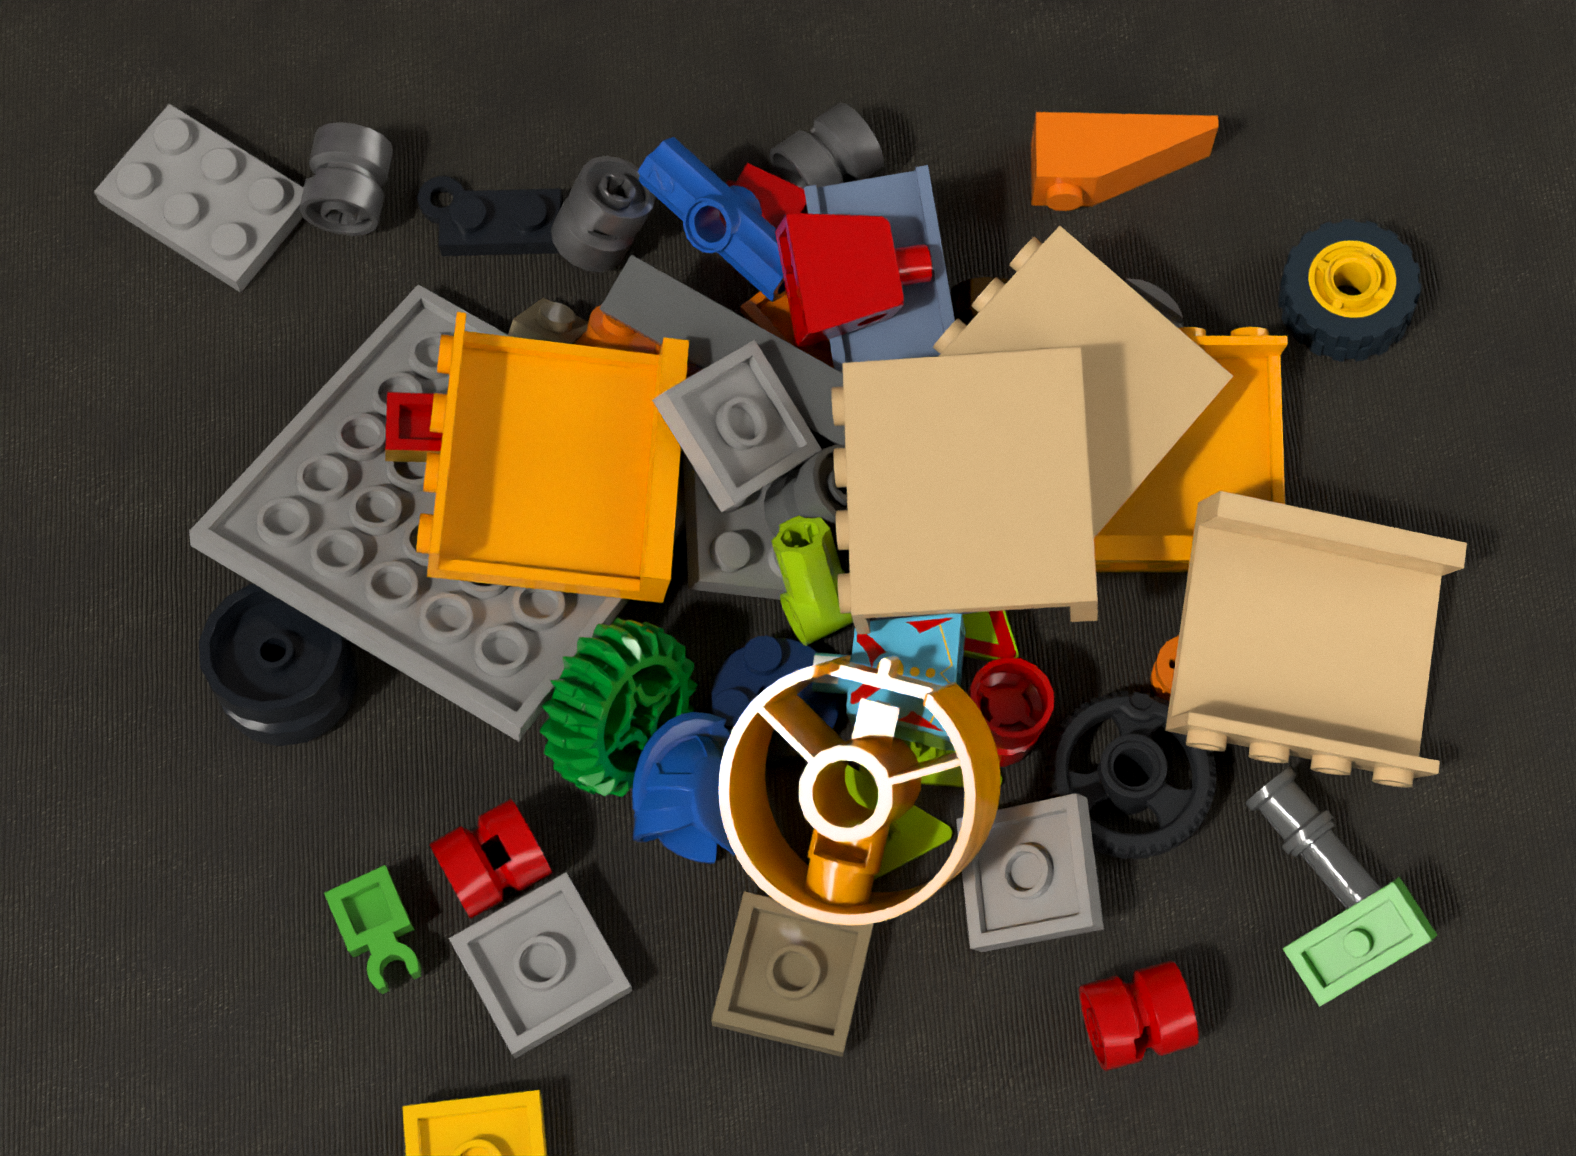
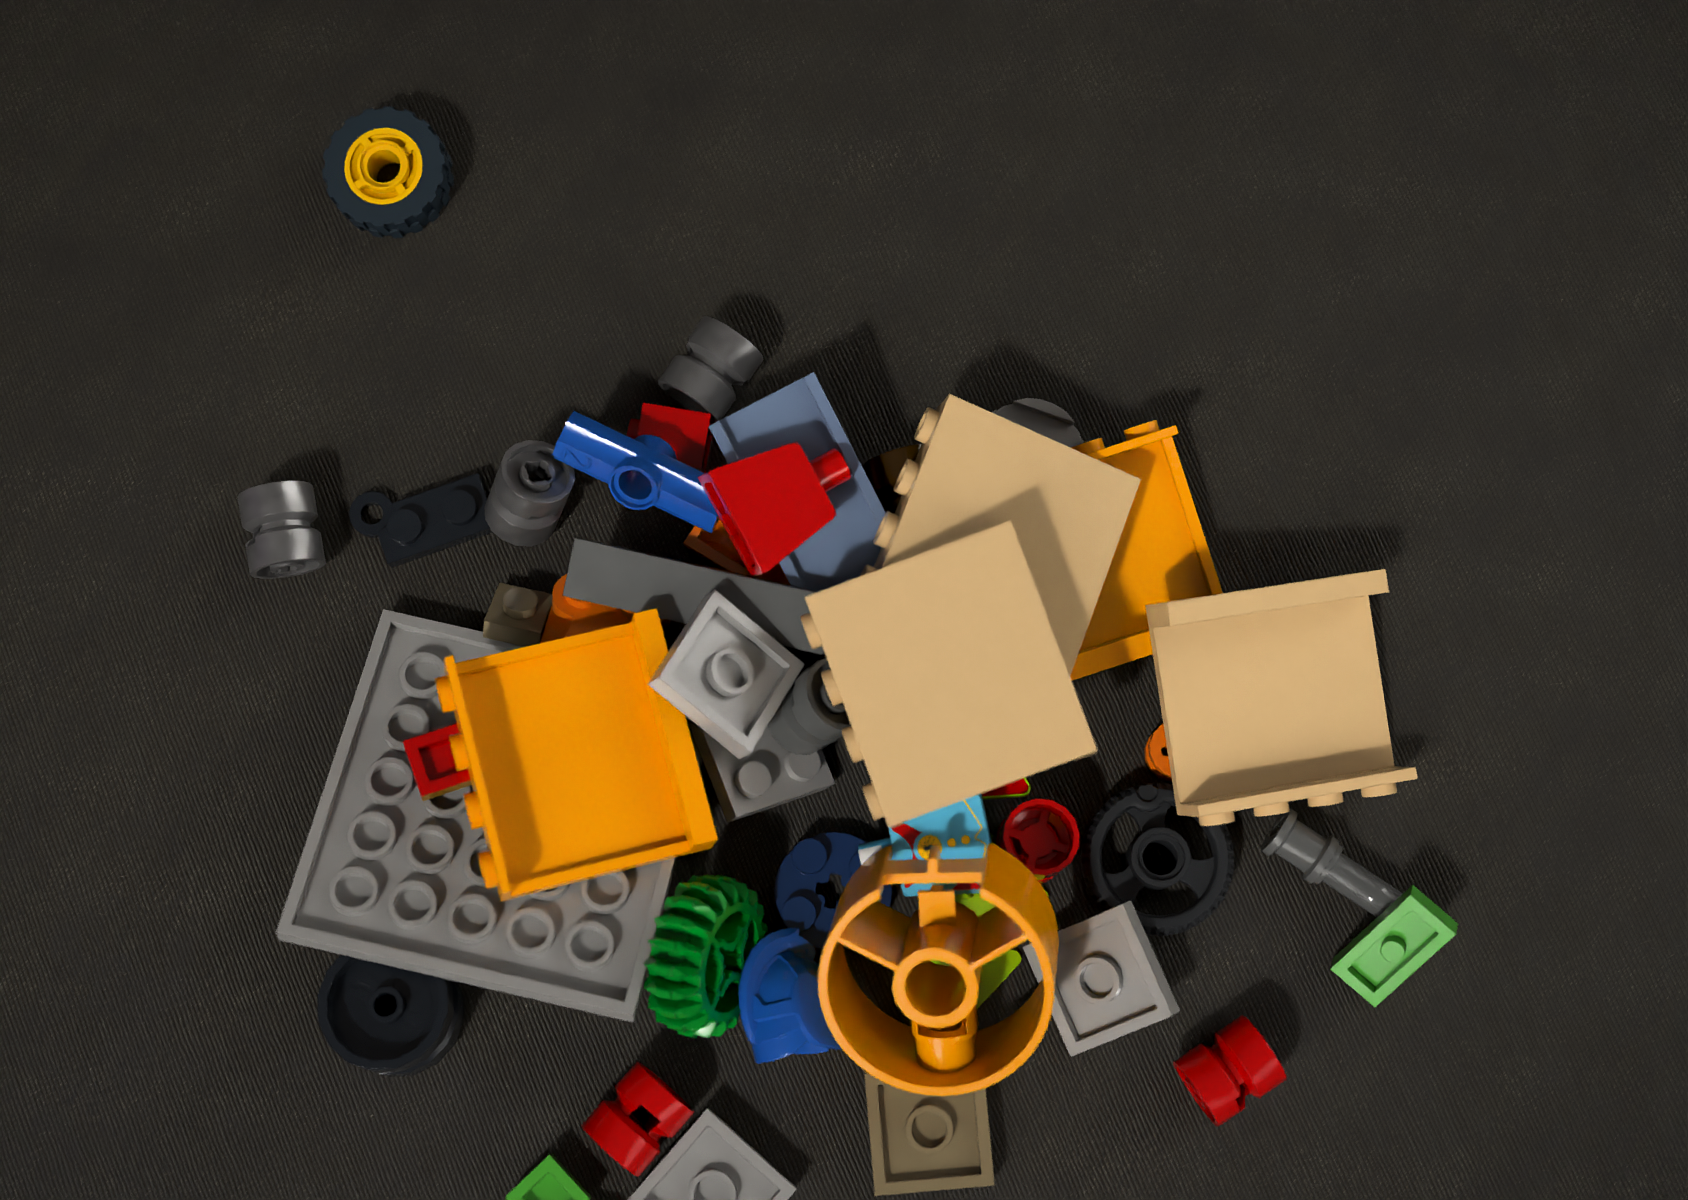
camera: 20 degrees left, 10 degrees up
(203, 197) = (153, 583): light grey plate -> none
(810, 578) = (831, 781): lime piece -> none
(1102, 155) = (950, 289): orange slope -> none
(1355, 257) = (1217, 314): black wheel -> none

